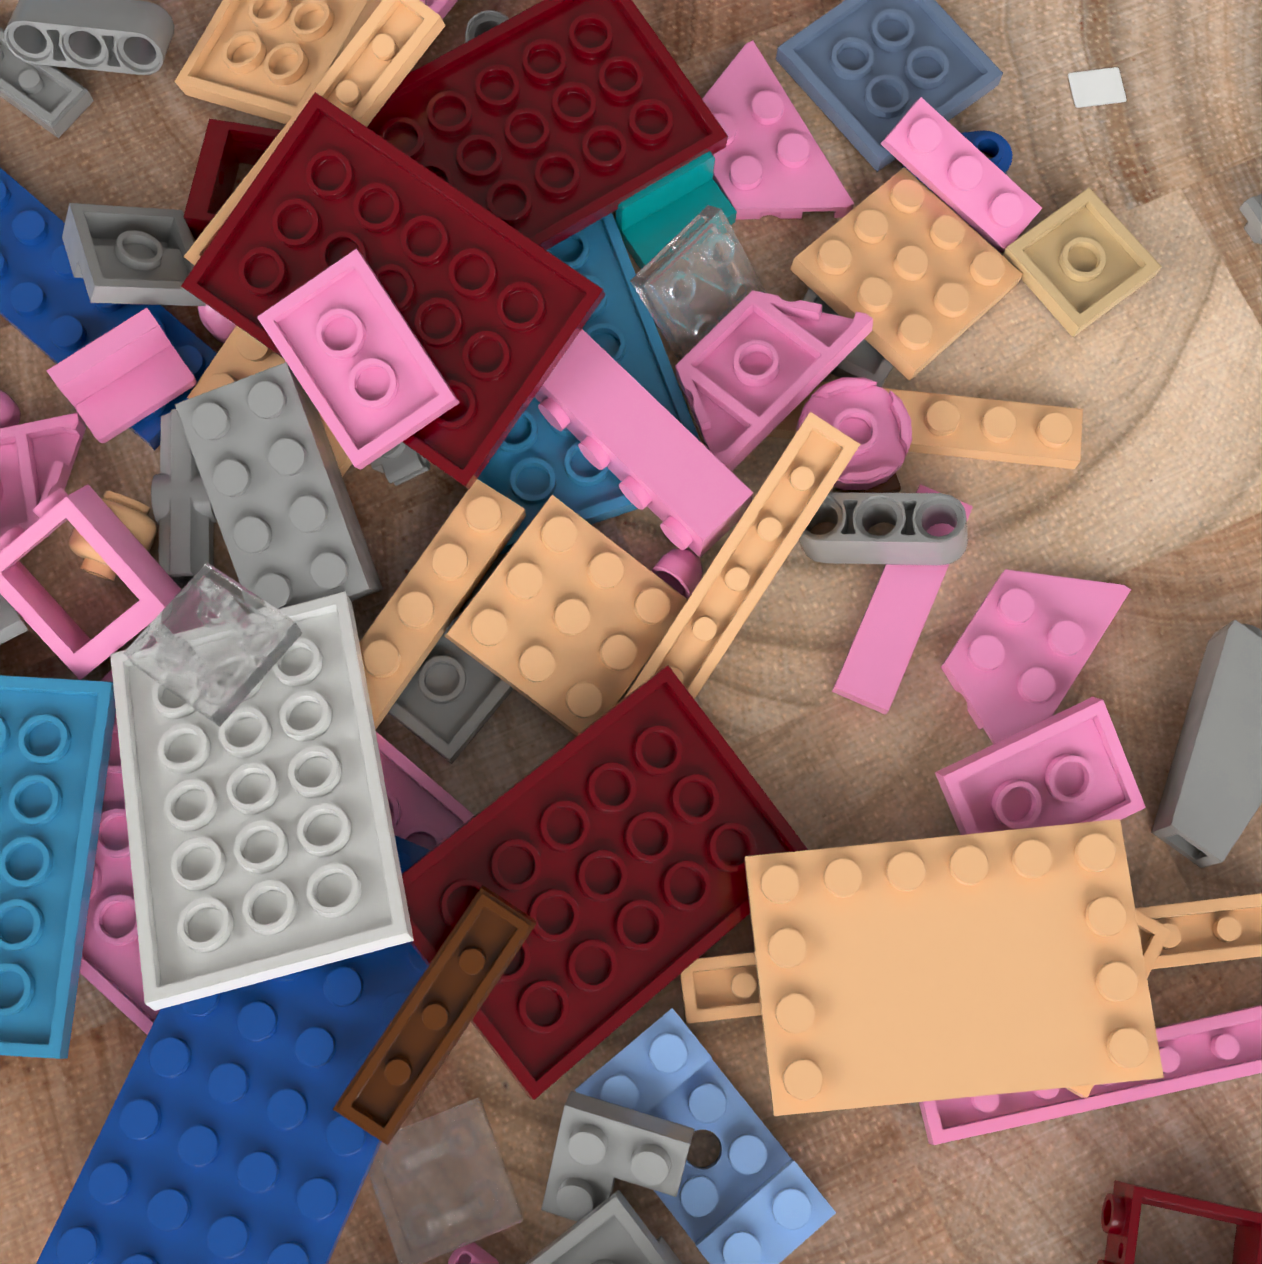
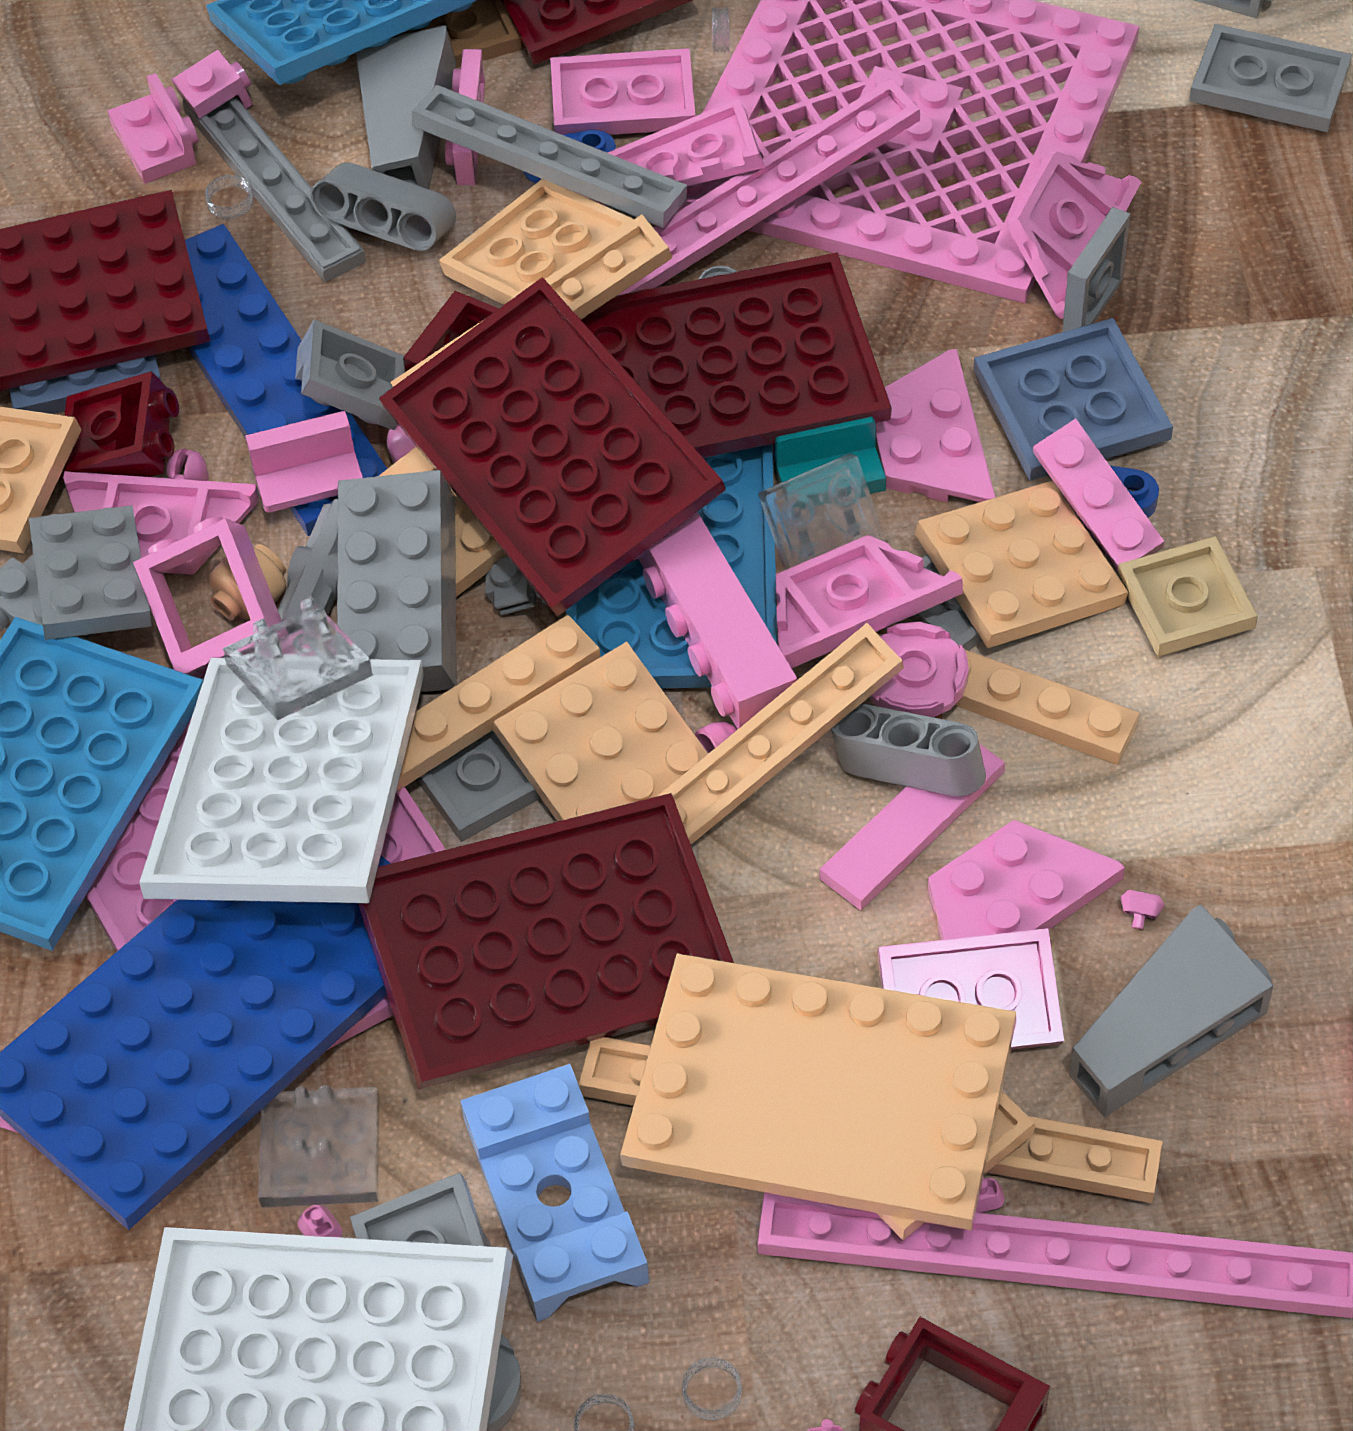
camera: 25 degrees right, 20 degrees down
(358, 359) = (499, 483): bright pink plate -> none
(434, 1015) = (365, 980): reddish brown tile -> none
(607, 1143) = (476, 1145): light grey plate -> none
(1097, 87) = (1267, 465): white sticker -> none
(1158, 625) = (1142, 906): none -> bright pink rock

